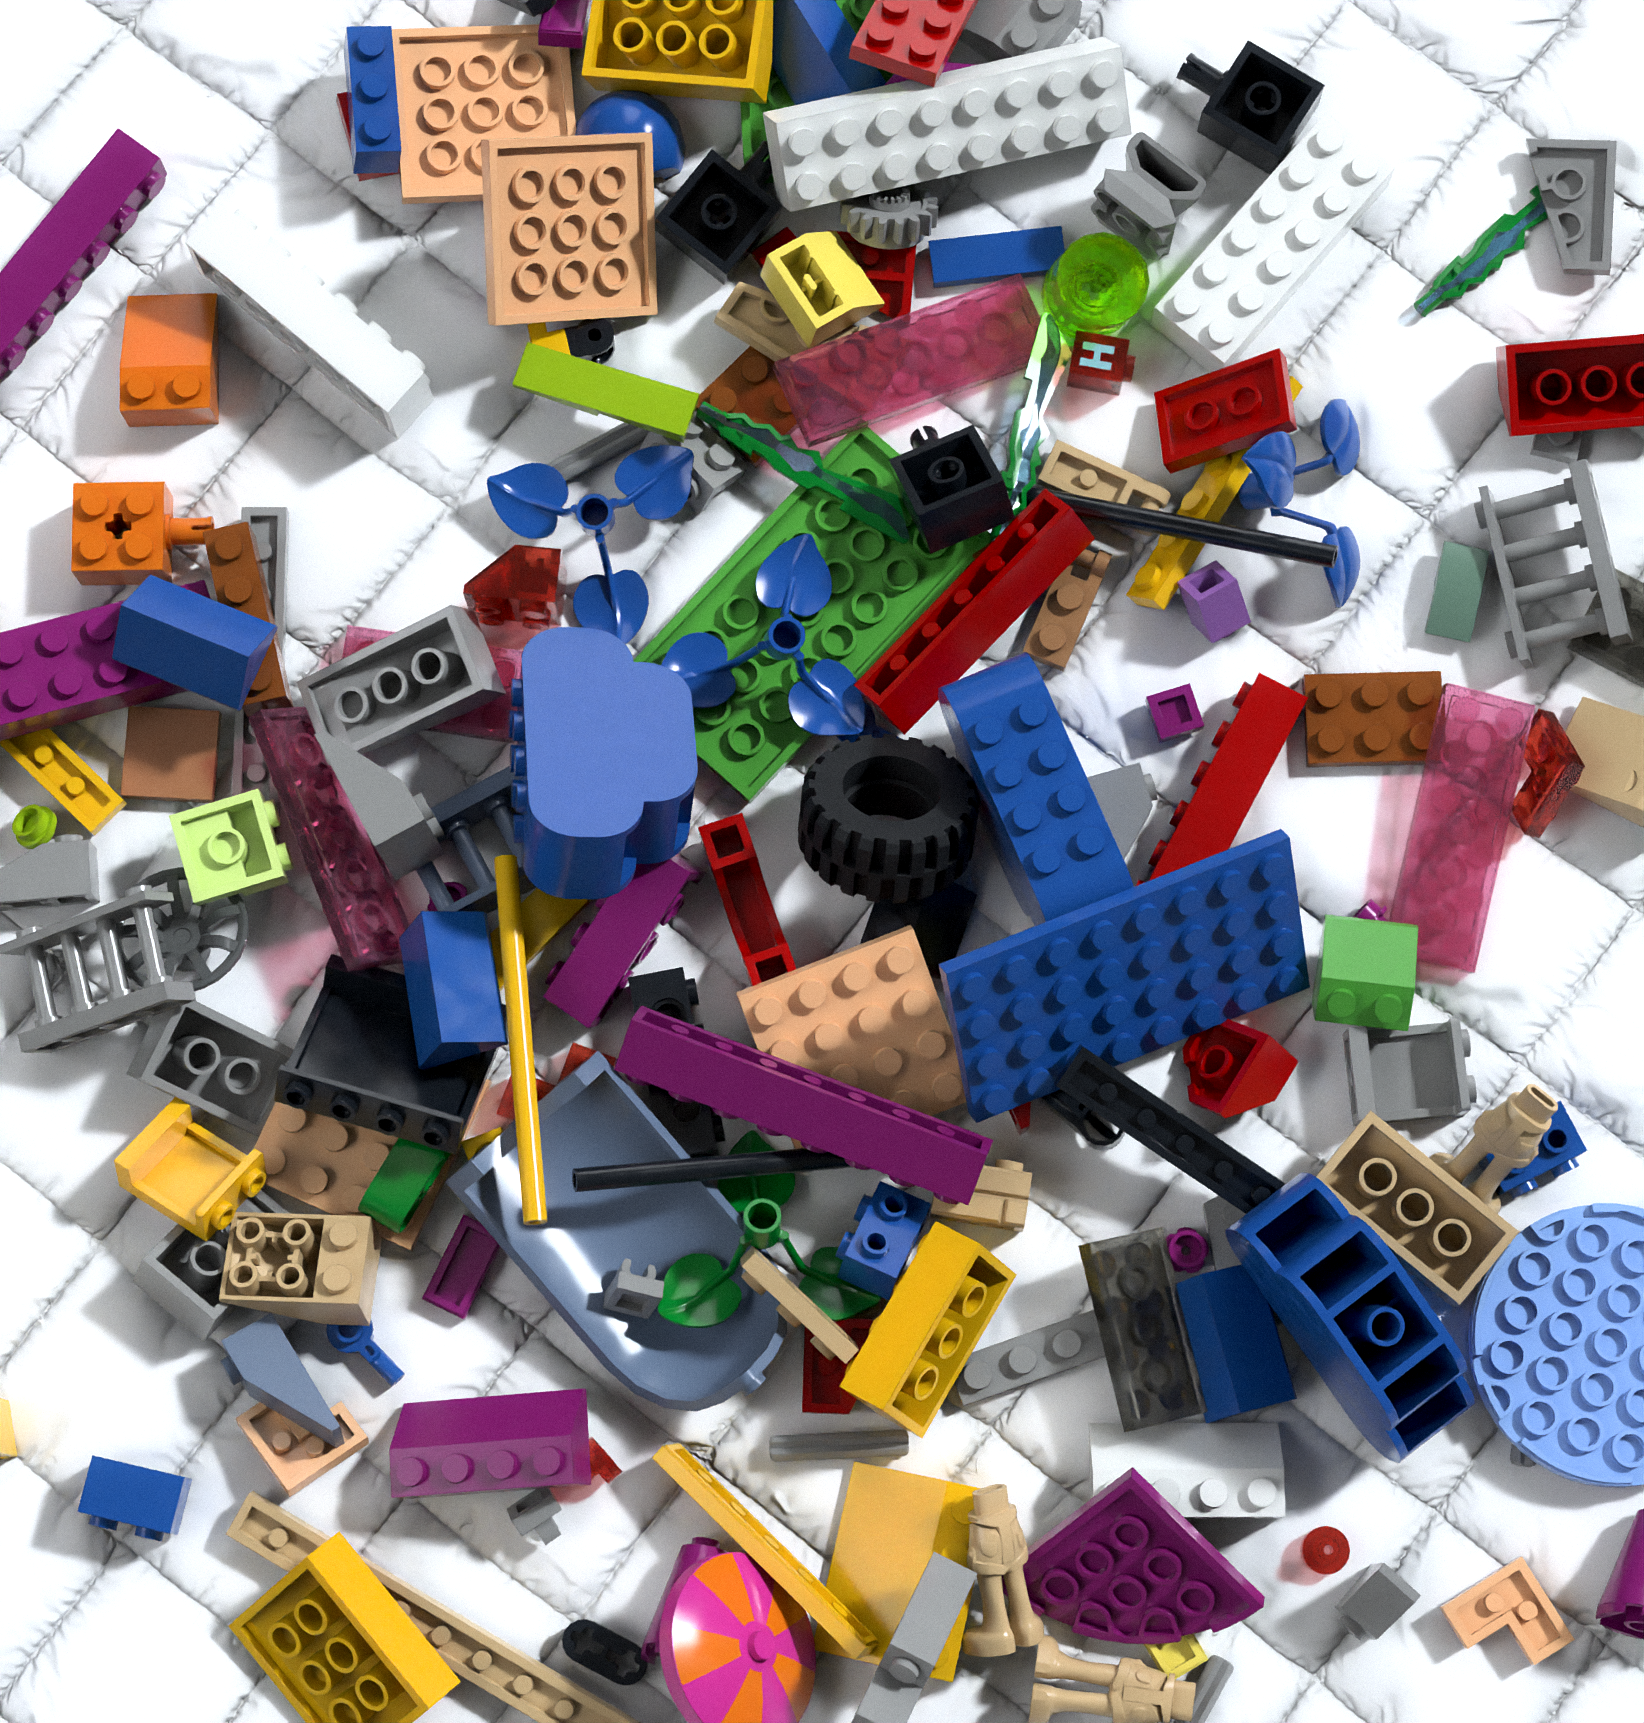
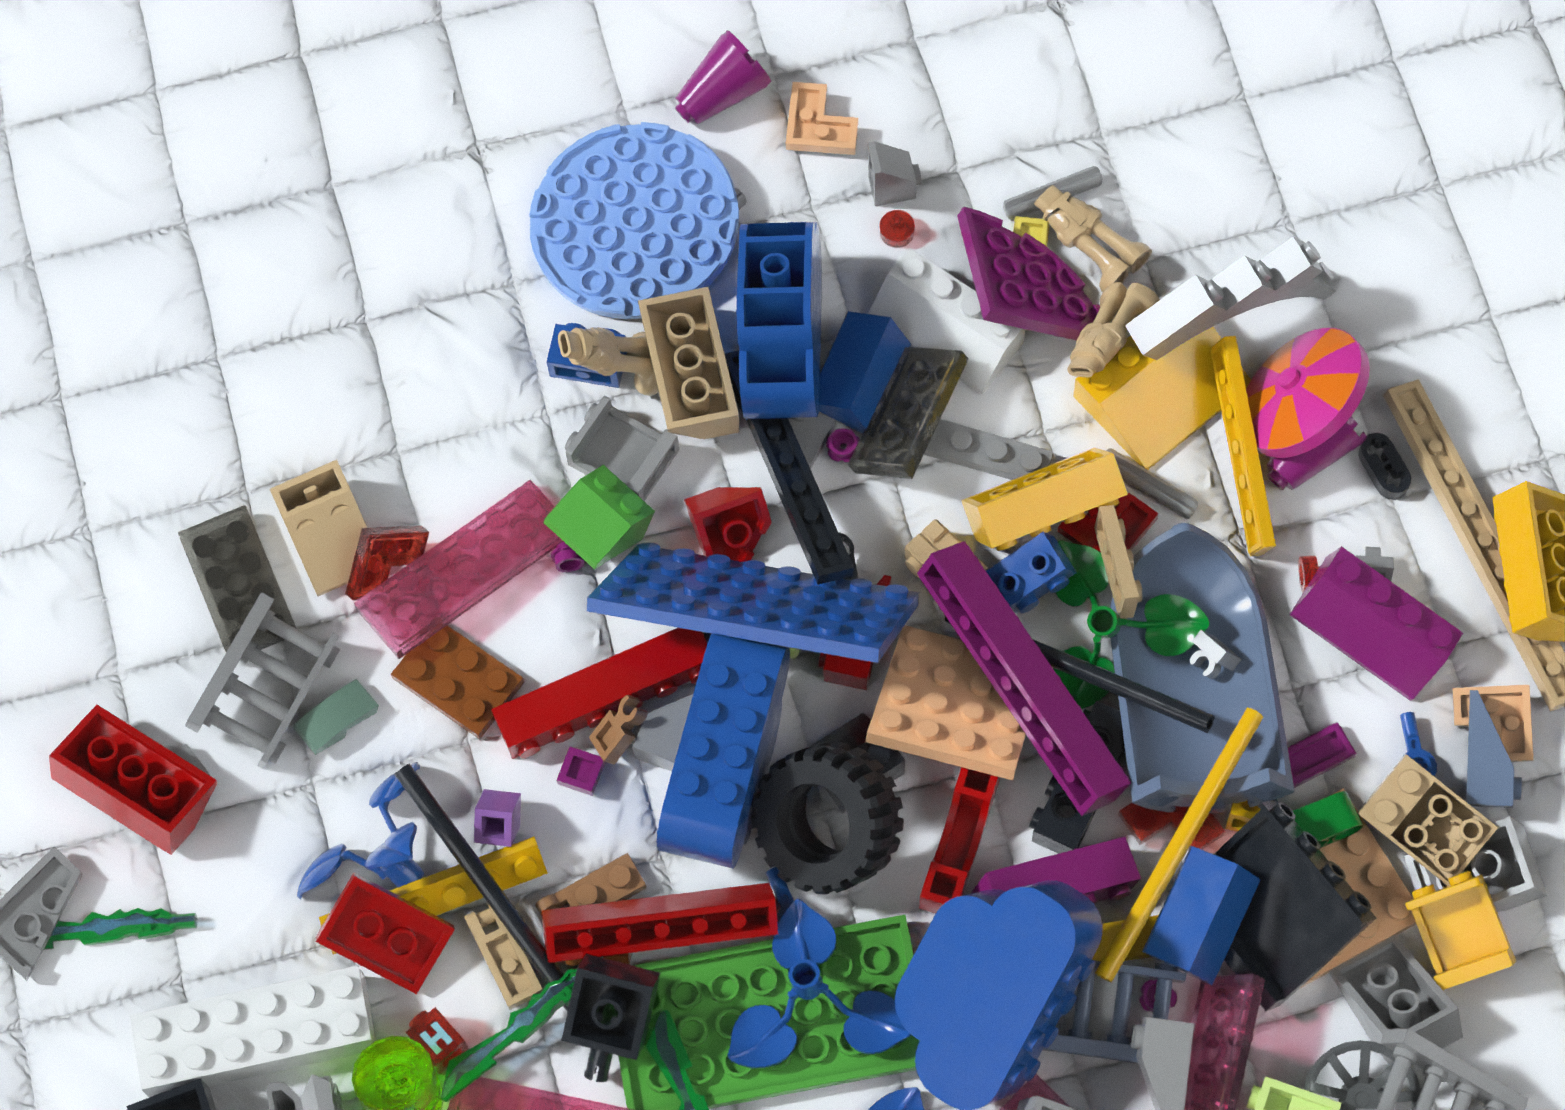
camera: 140 degrees left, 10 degrees down
(1170, 767) = (615, 730): none -> medium nougat plate

